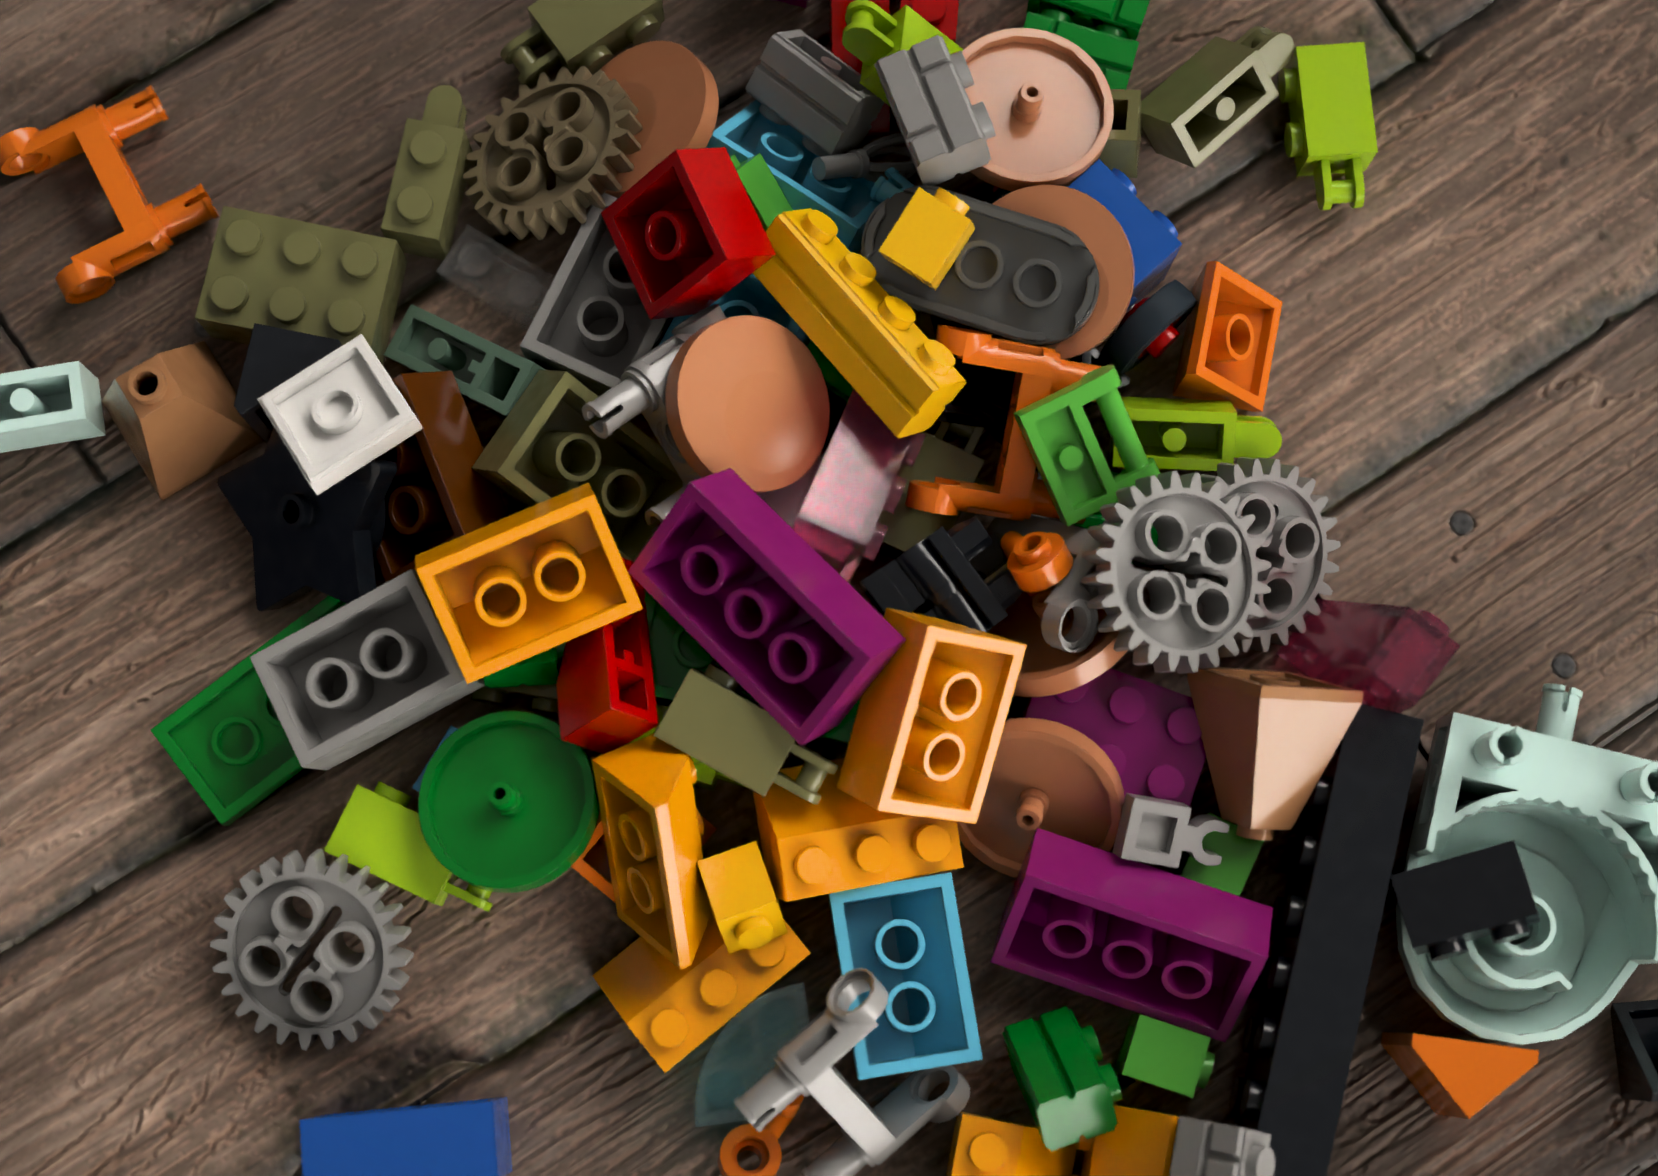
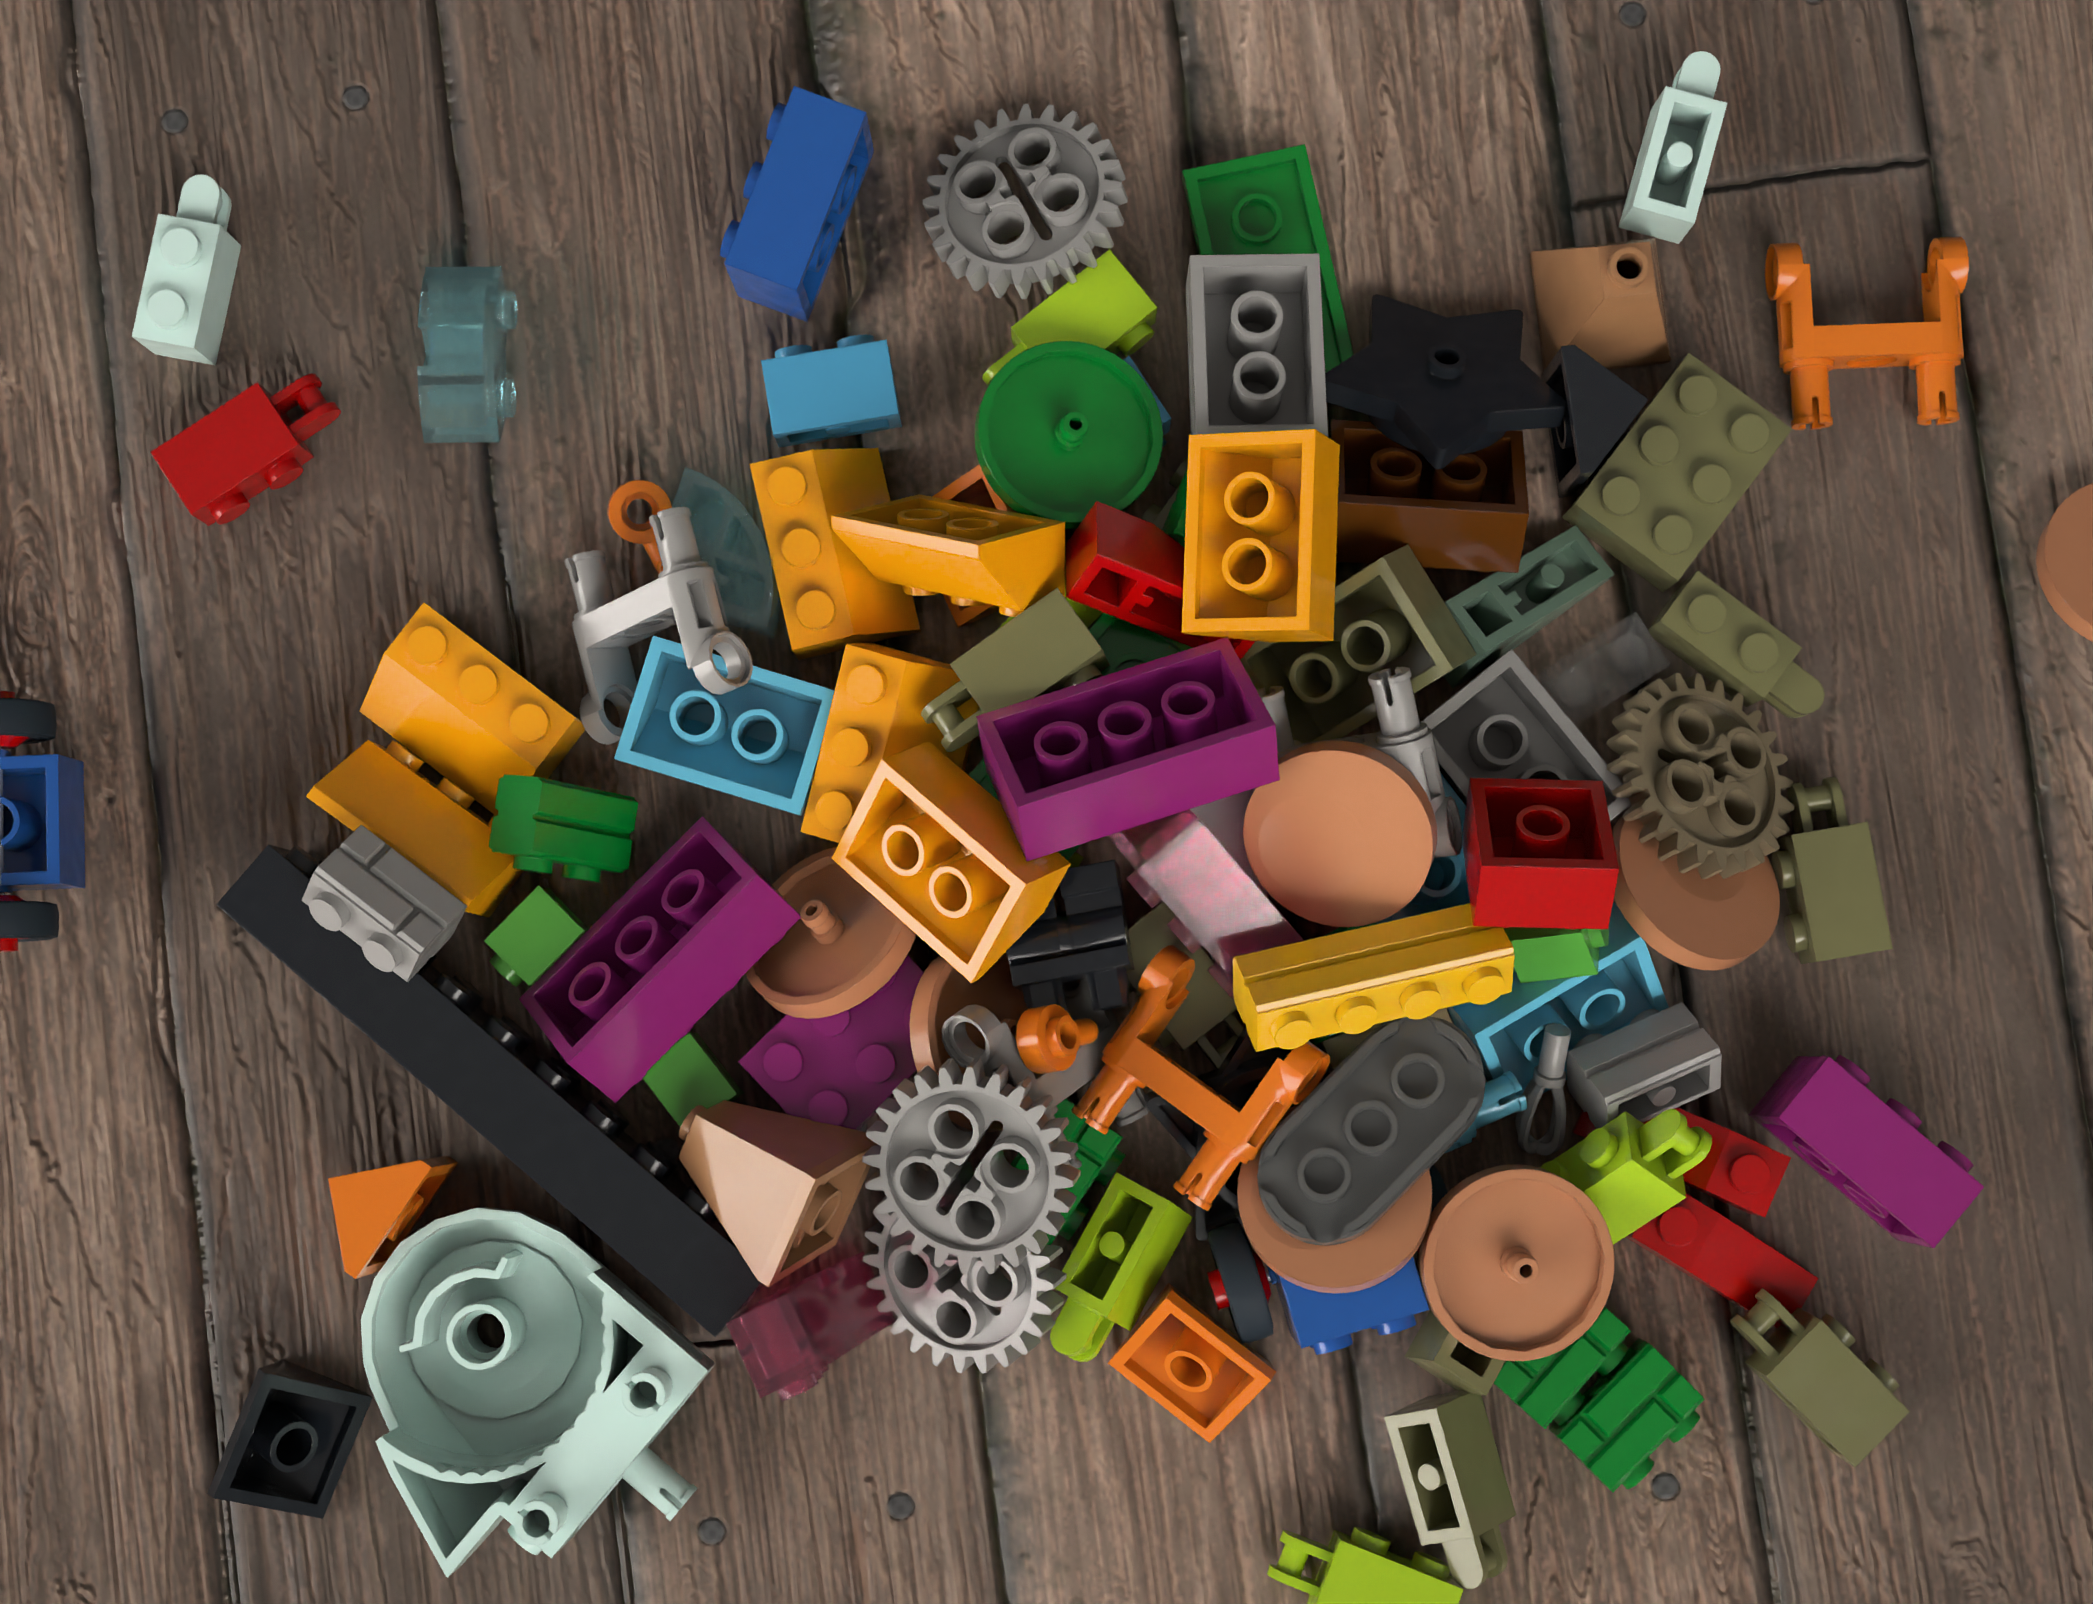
camera: 125 degrees right, 5 degrees up
(339, 414) = (1515, 437): white tile -> none
(561, 1039) = (831, 391): none -> dark azure brick
(742, 898) = (870, 606): yellow brick -> none
(929, 236) = (1418, 1084): yellow brick -> none
(934, 110) = (1549, 1158): light grey brick -> none
(1069, 451) = (1139, 1119): bright green plate -> none
(1160, 830) = (739, 1032): light grey plate -> none
(1466, 901) = (528, 1286): black brick -> none

